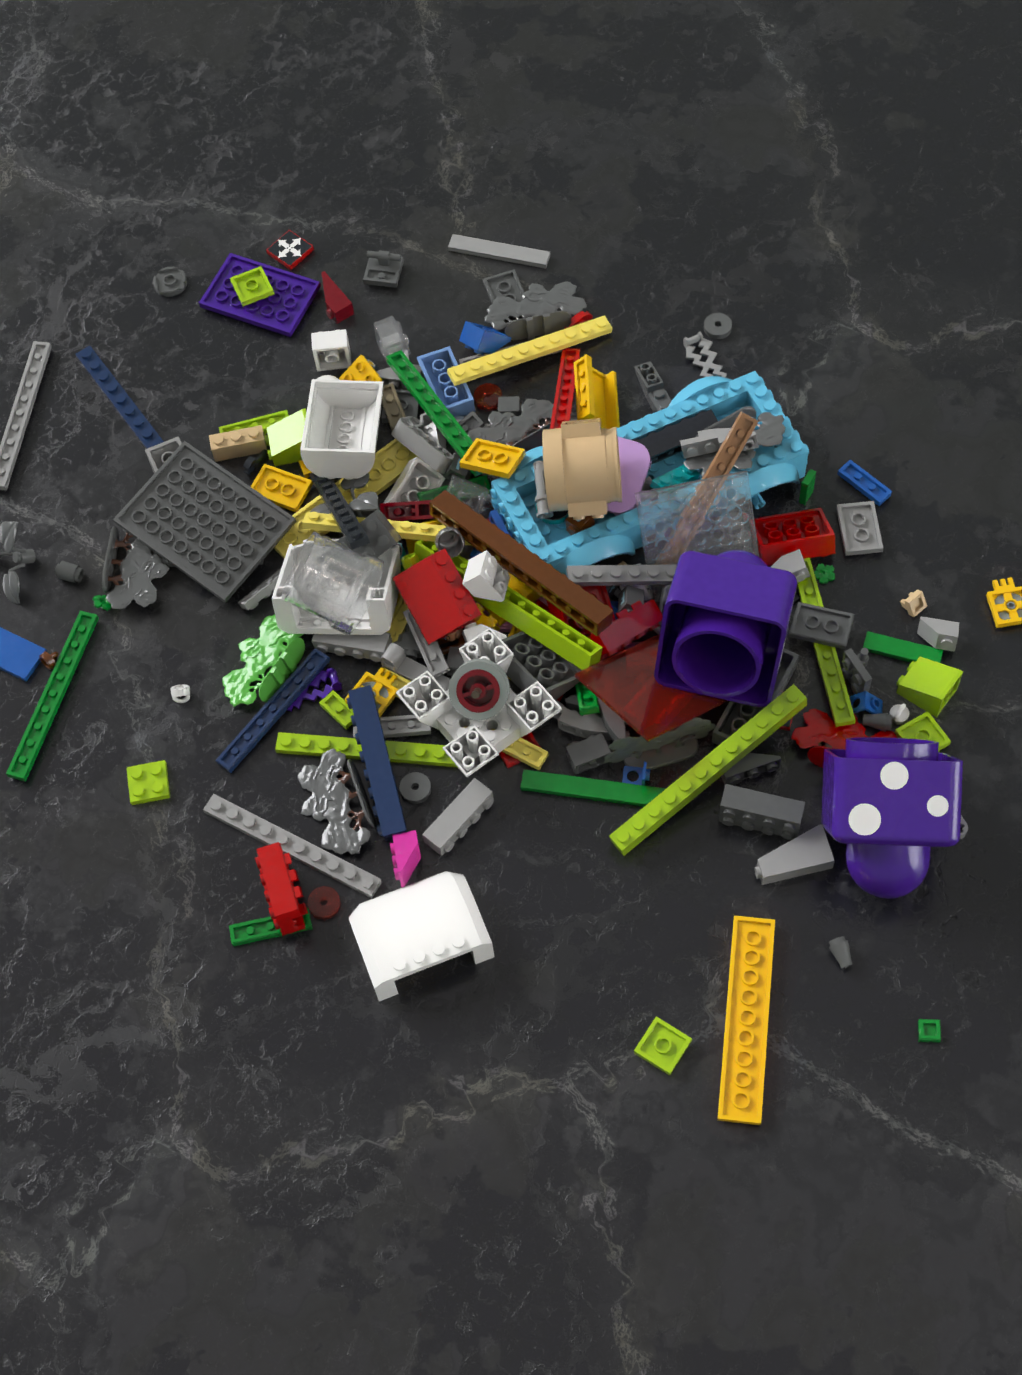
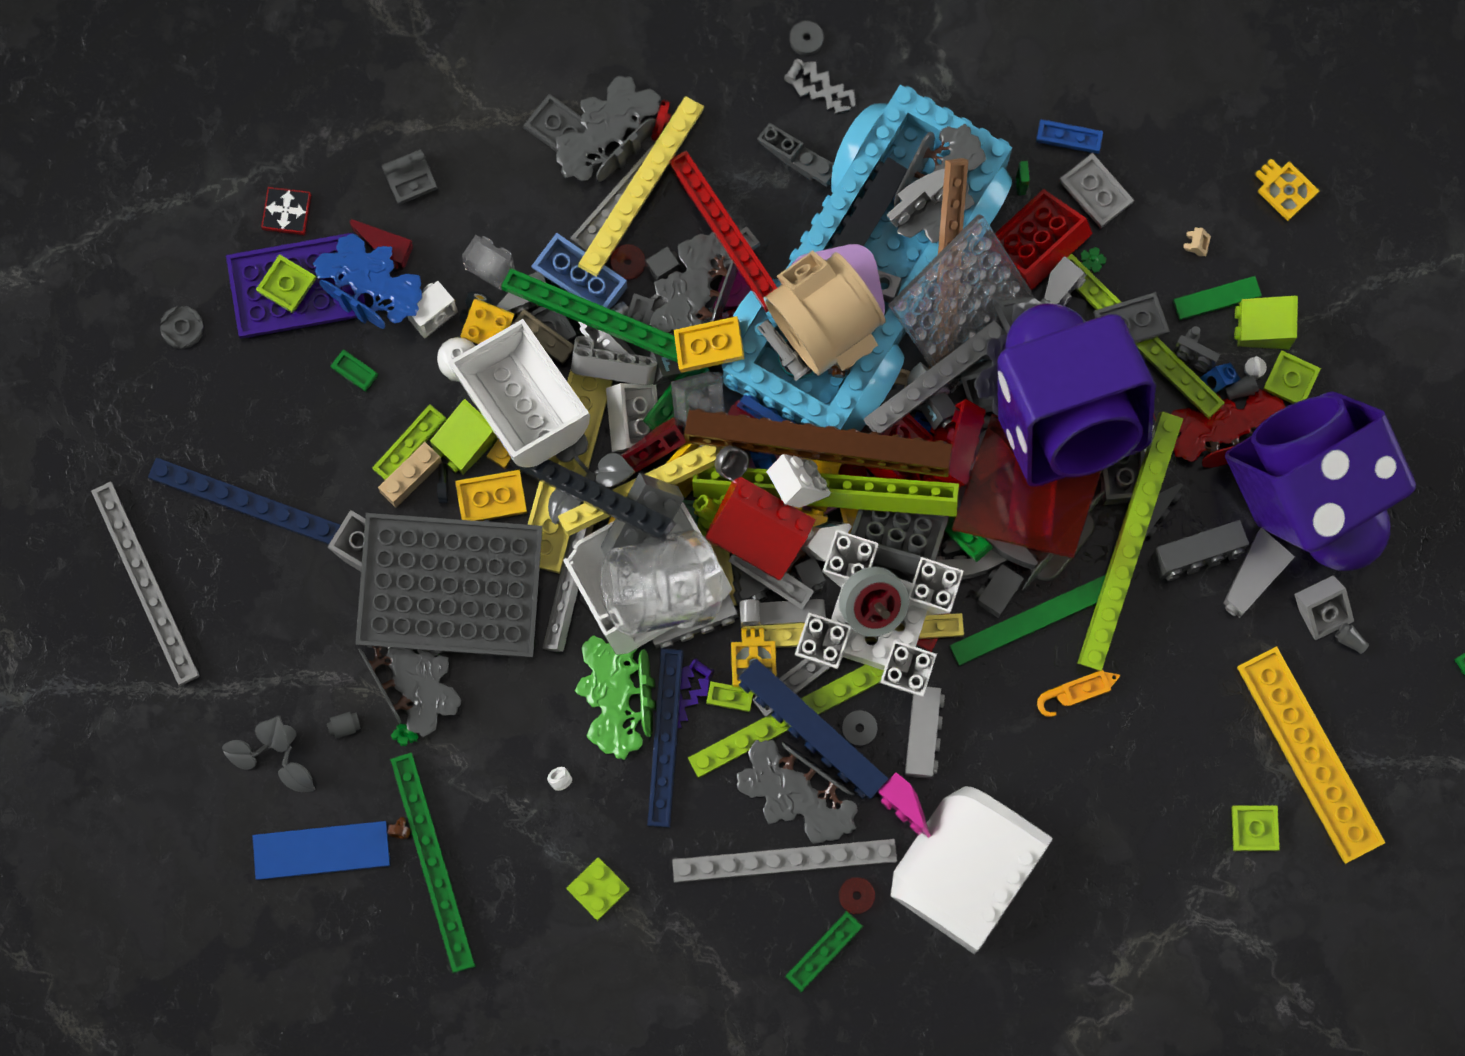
camera: 40 degrees left, 15 degrees up
(256, 364) = (354, 370): none -> green tile
(280, 890) = (816, 911): red piece -> none
(306, 306) = (369, 275): none -> blue plant
(482, 338) = (580, 199): blue slope -> none
(499, 251) = (515, 80): light grey tile -> none
(596, 394) = (748, 201): yellow panel -> none
(597, 859) = (1078, 690): none -> light orange plate
(643, 773) = (1066, 582): blue bracket -> none
(676, 476) = (902, 259): teal plate -> none
(834, 915) = (1324, 607): none -> light grey slope
(939, 633) = (1243, 261): light grey slope -> none

